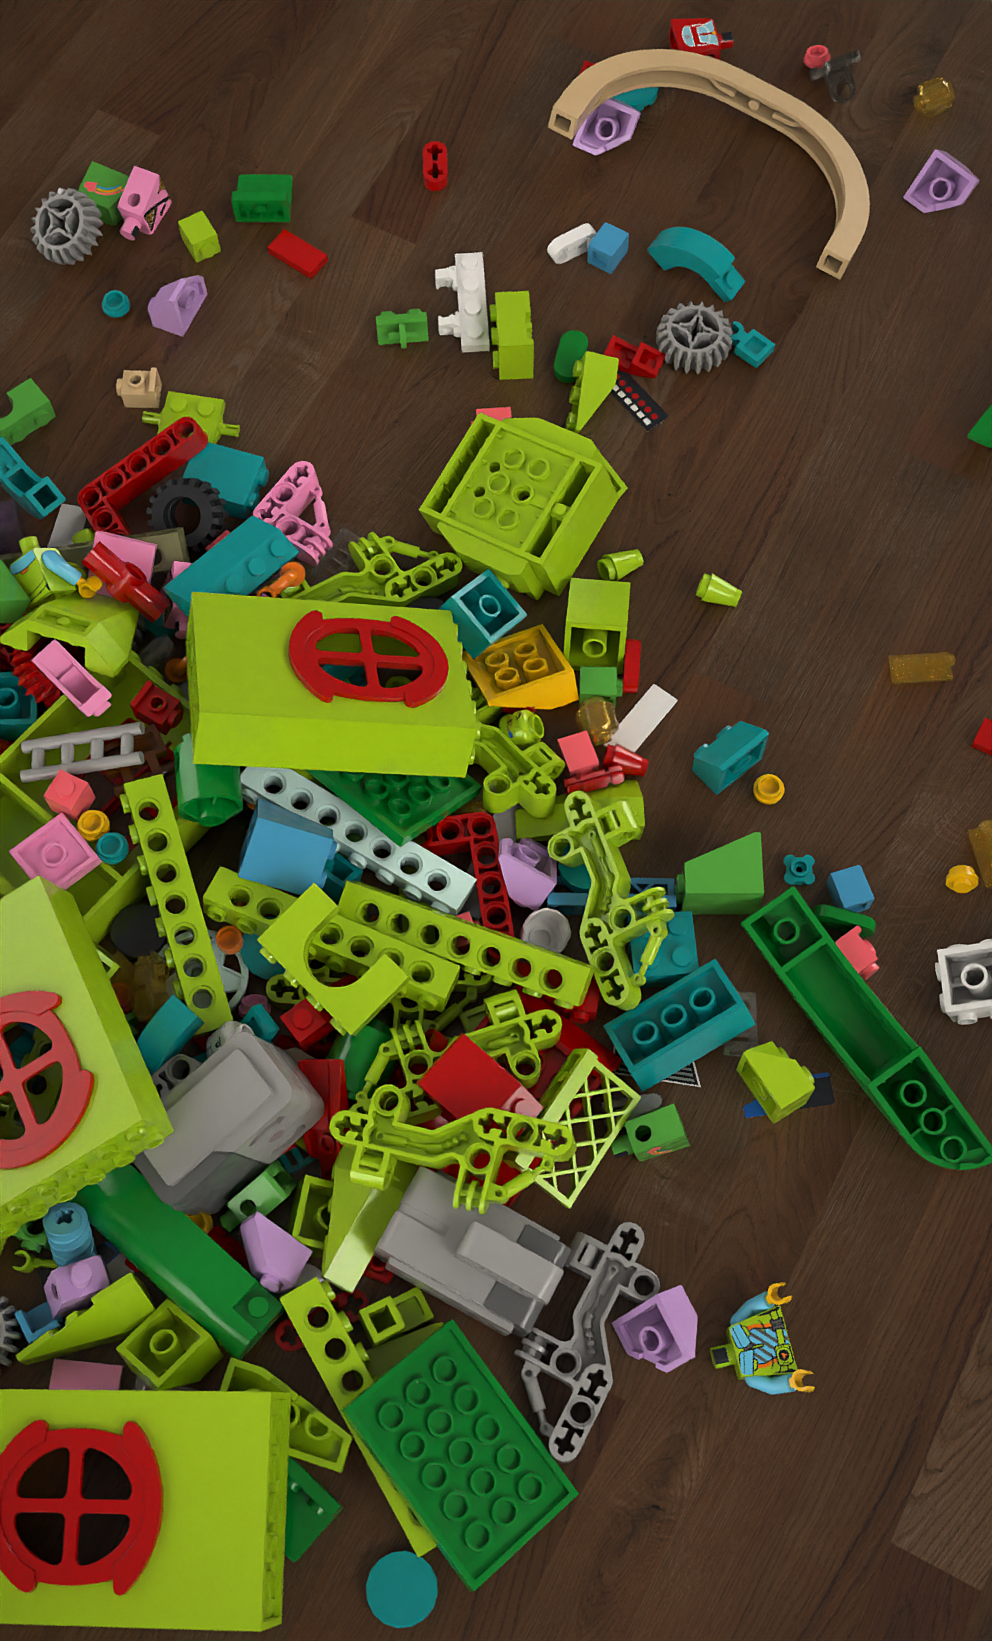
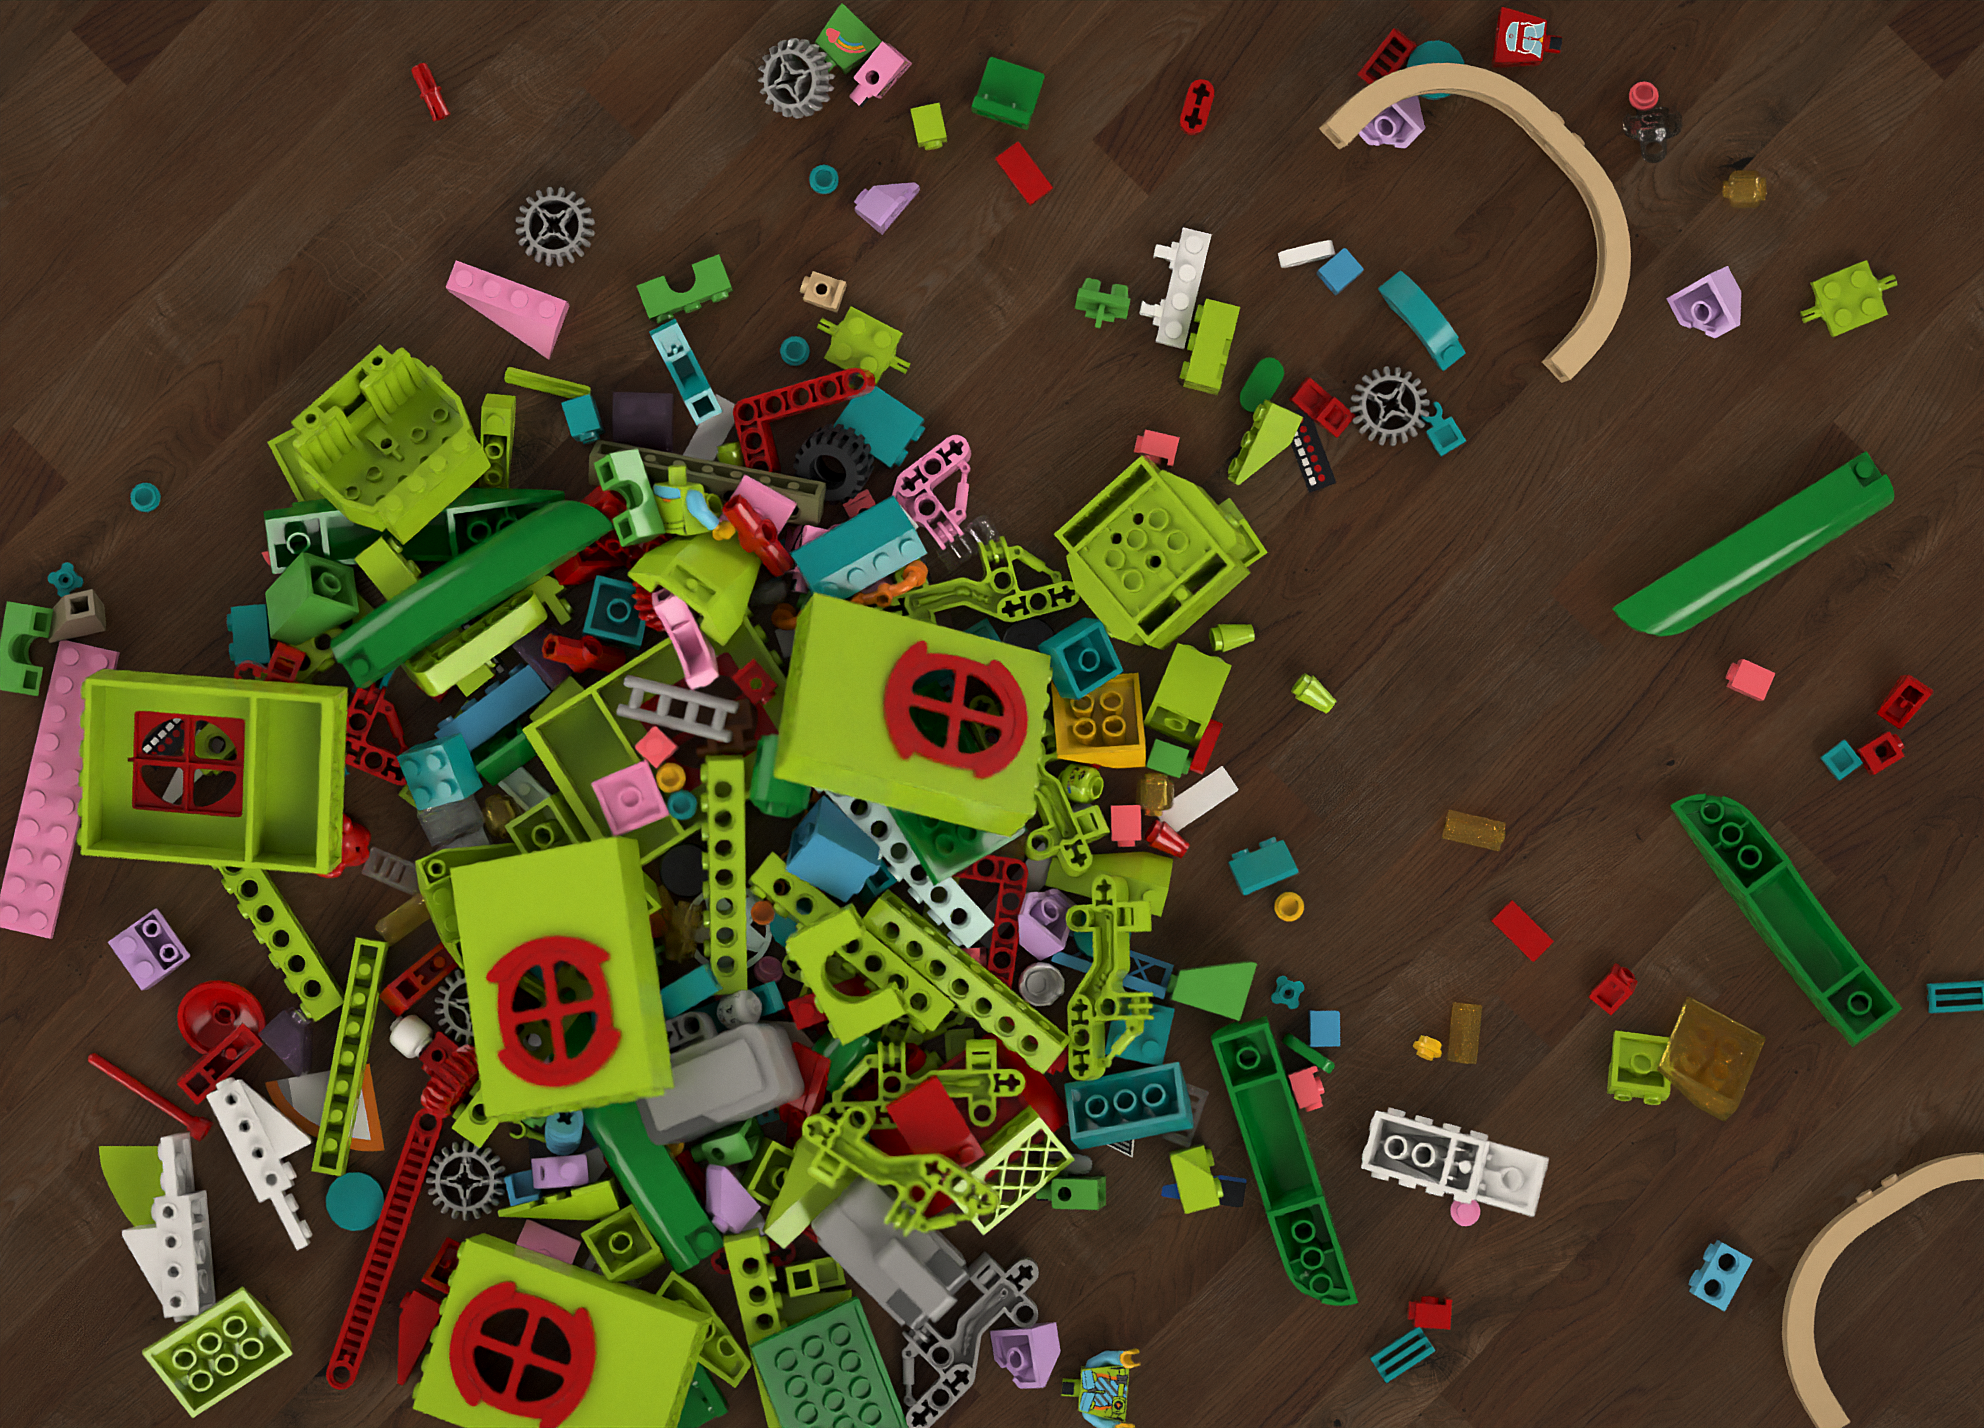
camera: 20 degrees right, 20 degrees up
(125, 443) = (794, 351): none -> teal plate
(594, 780) = (1131, 854): red axle -> none

